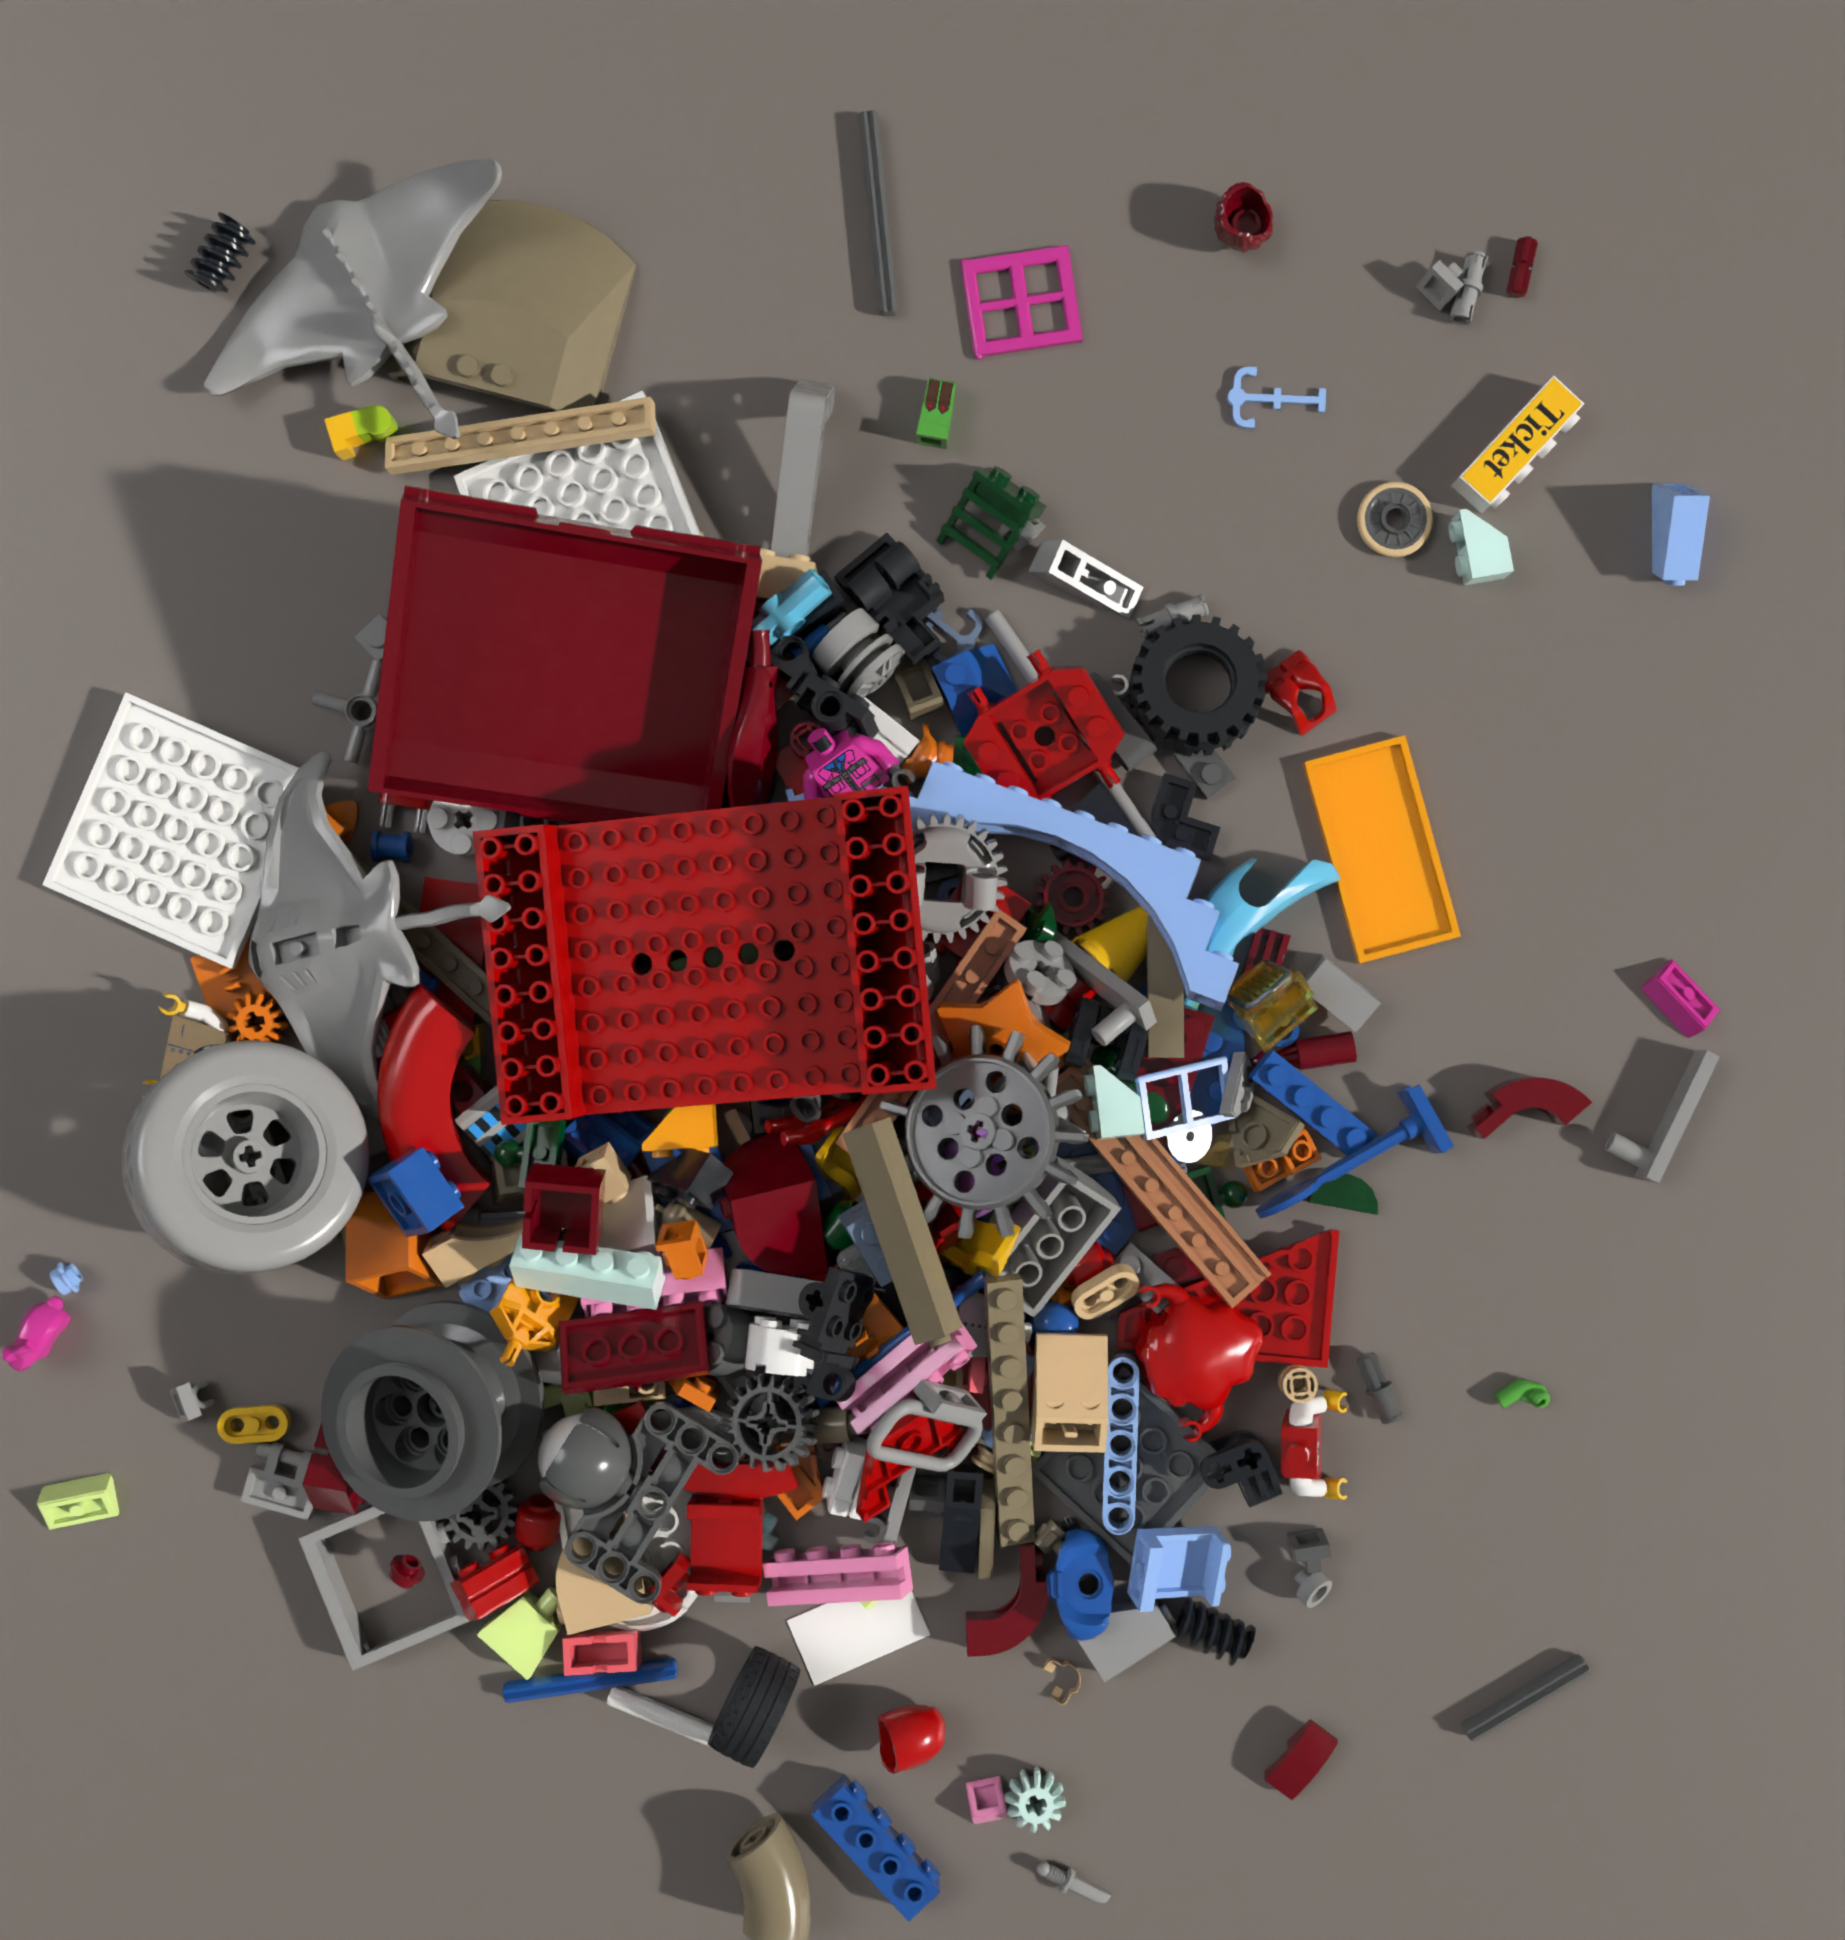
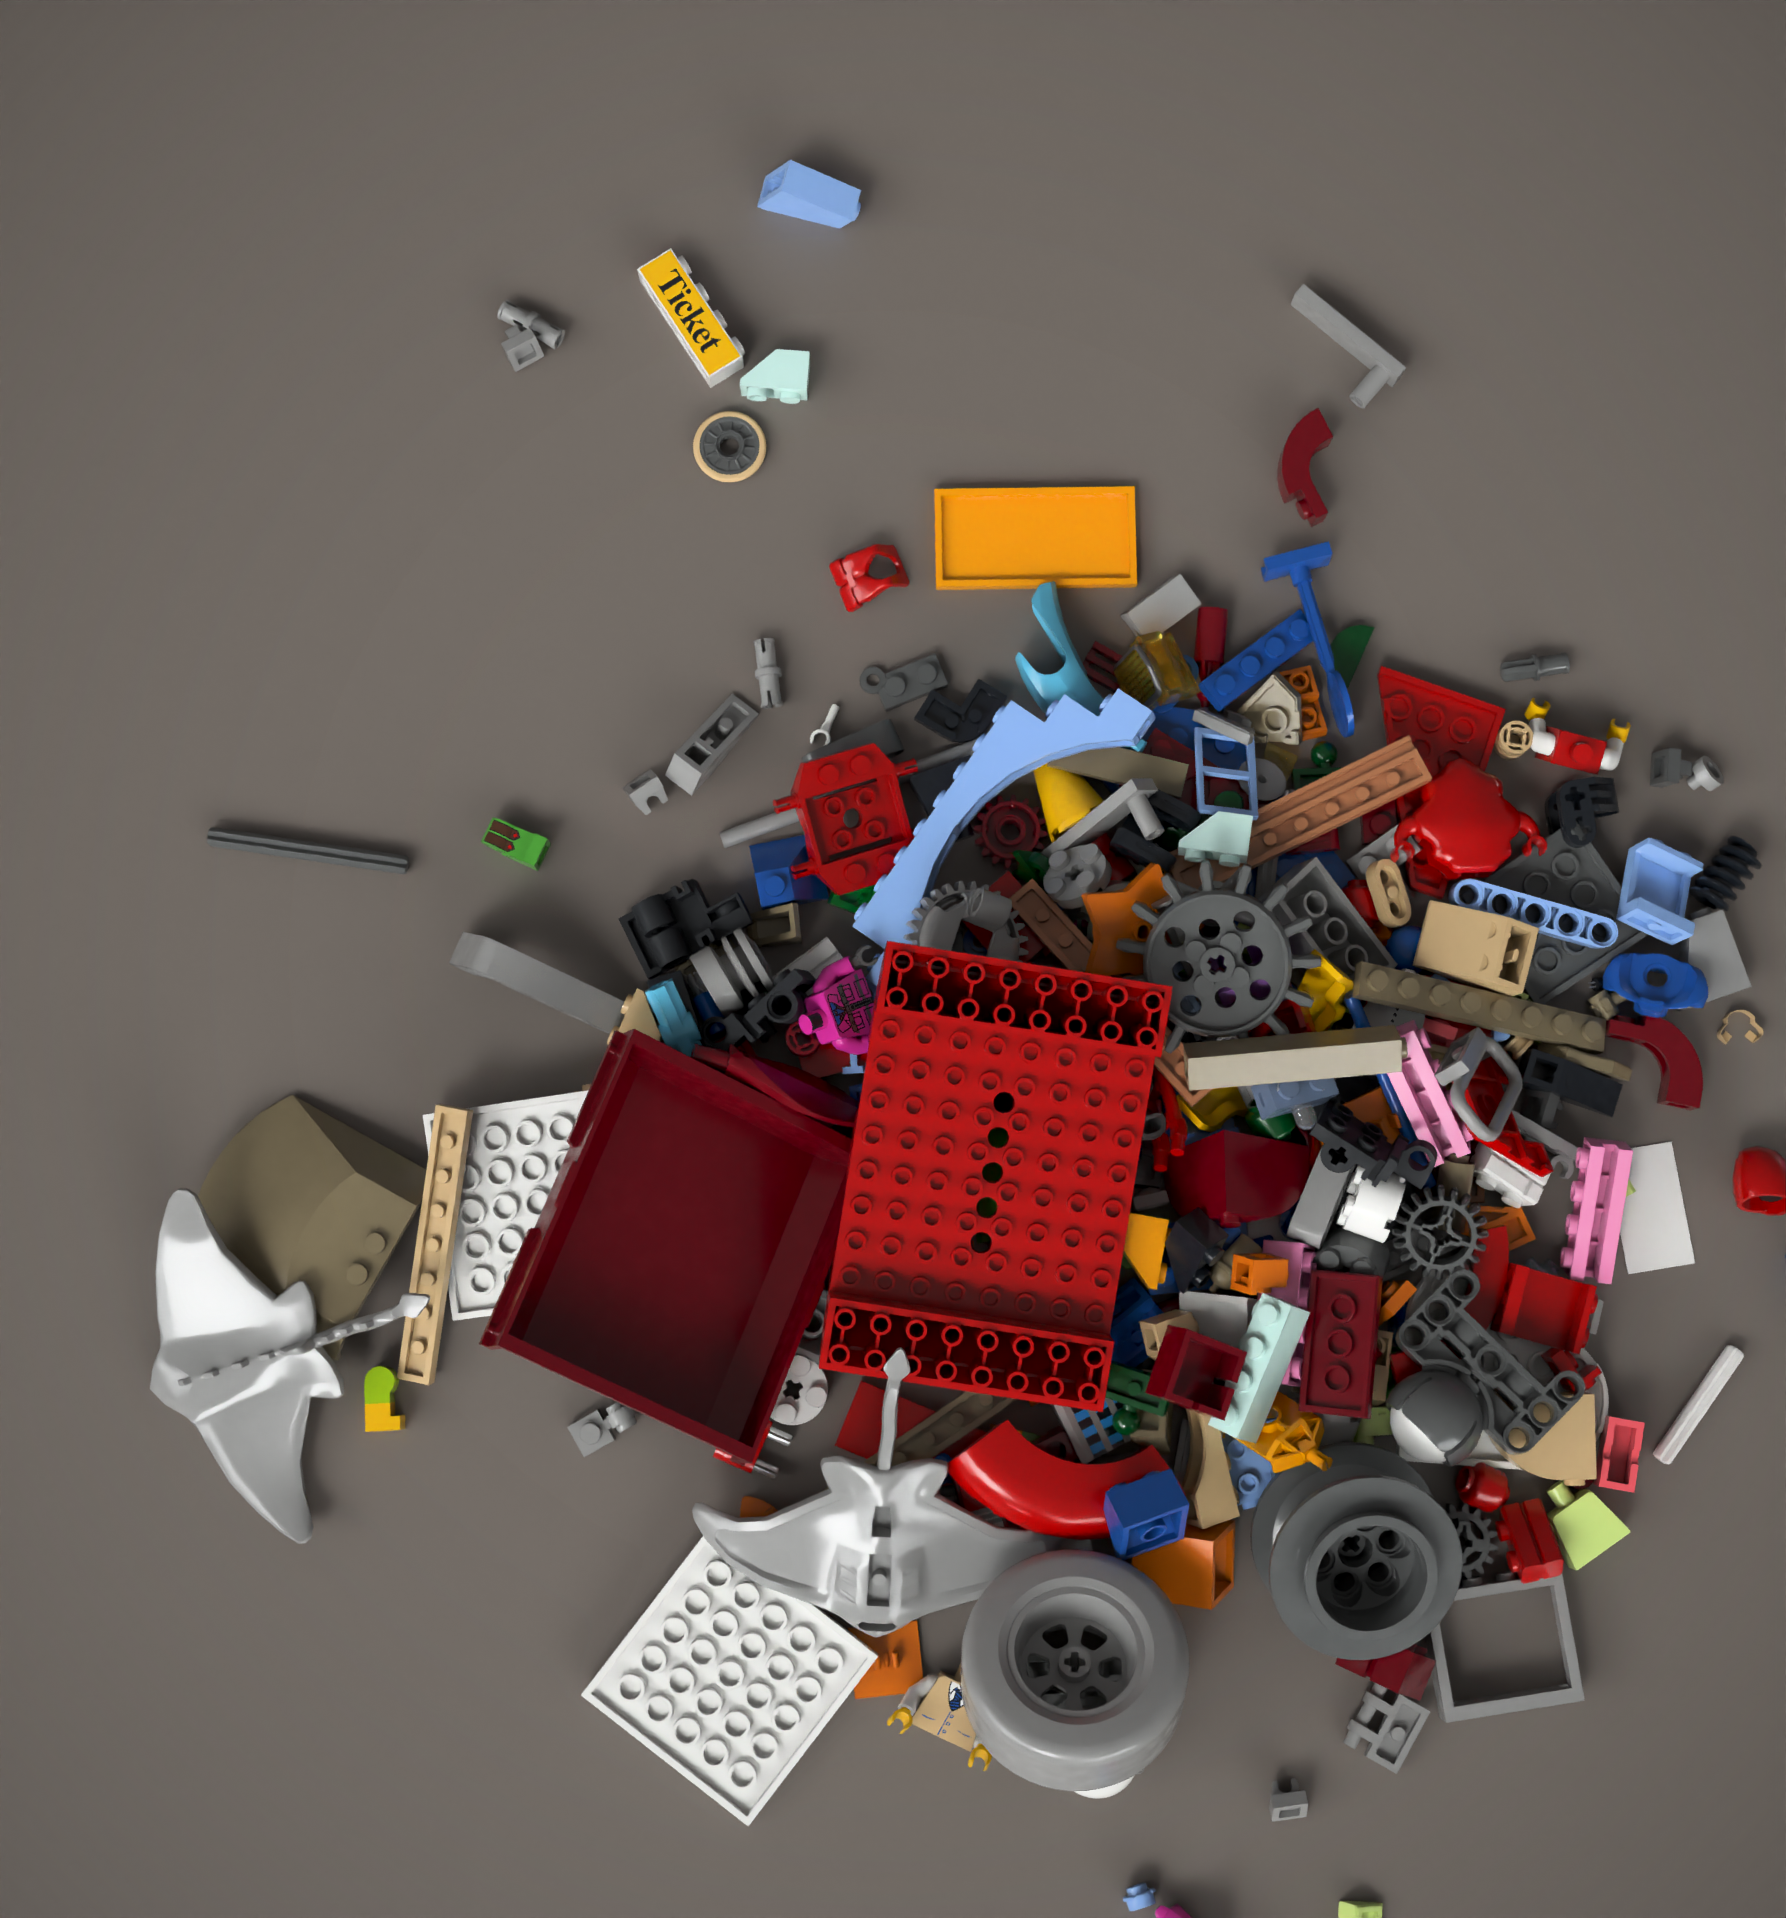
camera: 80 degrees left, 5 degrees down
(220, 254) = (173, 1496): black piece -> none
(253, 1007) = (942, 1650): orange gear -> none
(256, 1424) = (1324, 1742): yellow plate -> none
(351, 707) = (651, 1478): light grey bar -> none
(391, 846) = (797, 1470): blue bush -> none
(406, 1570) = (1501, 1621): dark red plate -> none
(562, 1685) = (1642, 1498): blue axle -> none
(754, 1707) = (1703, 1317): black tyre -> none
(925, 753) = (841, 932): orange animal -> none
(964, 642) = (741, 873): sand blue piece -> none
(1001, 499) = (619, 800): dark green plate -> none
(1020, 301) = (429, 738): dark pink window -> none
(1187, 728) = (870, 697): black tyre -> none
(1237, 397) = (575, 560): light blue piece -> none
(1243, 218) = (411, 511): dark red hair -> none
(1520, 274) = (531, 274): dark red piece -> none
(1524, 1390) = (1567, 536): bright green arm -> none
(1680, 999) = (1240, 305): dark pink slope -> none

